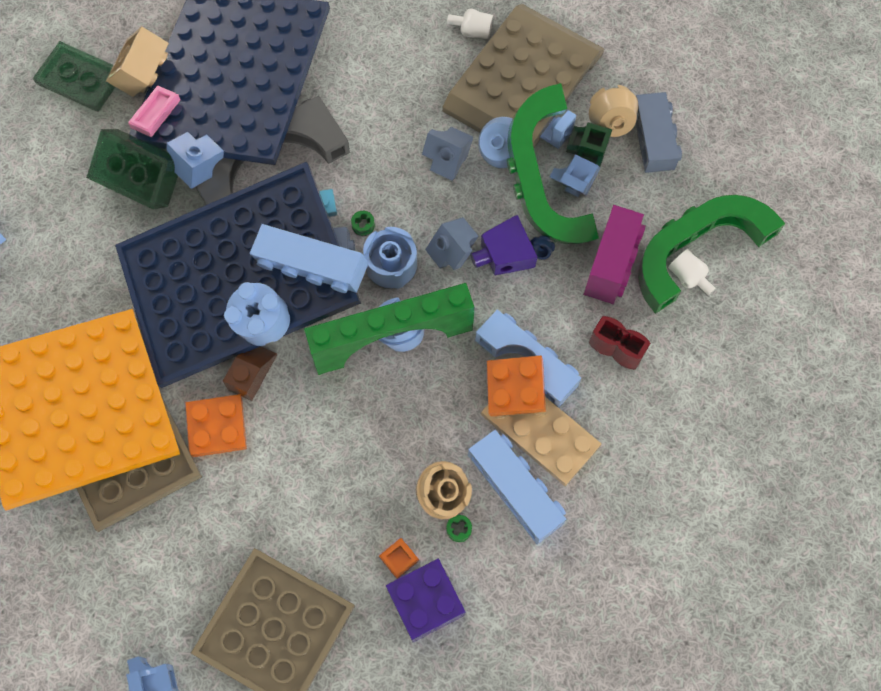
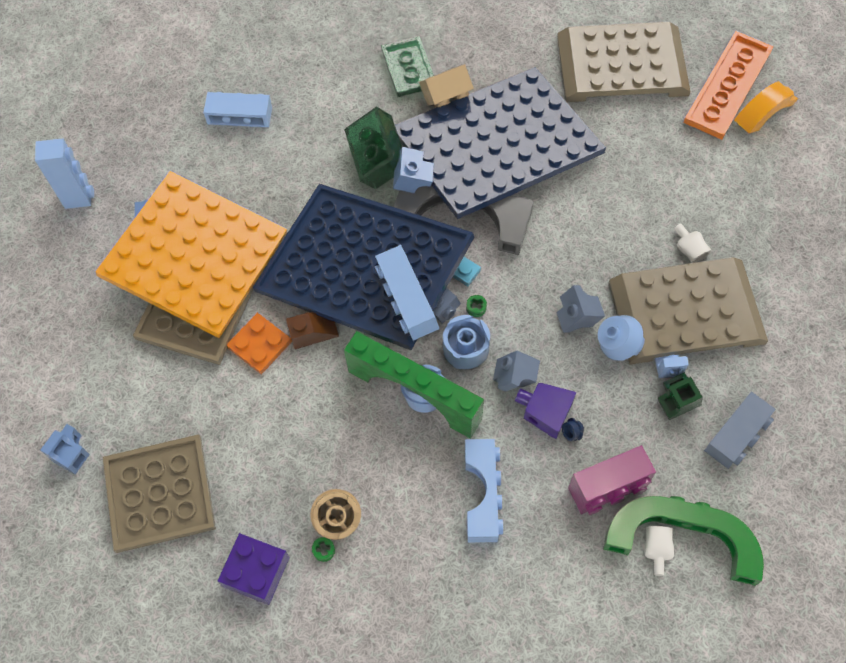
camera: 50 degrees right, 5 degrees down
(154, 111) = (422, 123): bright pink tile -> none
(243, 313) = (342, 297): light blue brick -> none
(399, 558) = (270, 528): orange tile -> none
(516, 386) = (451, 498): orange plate -> none
(516, 486) = (383, 561): light blue brick -> none
(524, 166) = (611, 363): green arch -> none
(549, 439) = (441, 544): tan plate -> none
(577, 176) = (647, 407): medium blue brick -> none
(614, 110) = (722, 387): tan cone -> none
(623, 345) = (553, 547): dark red brick -> none

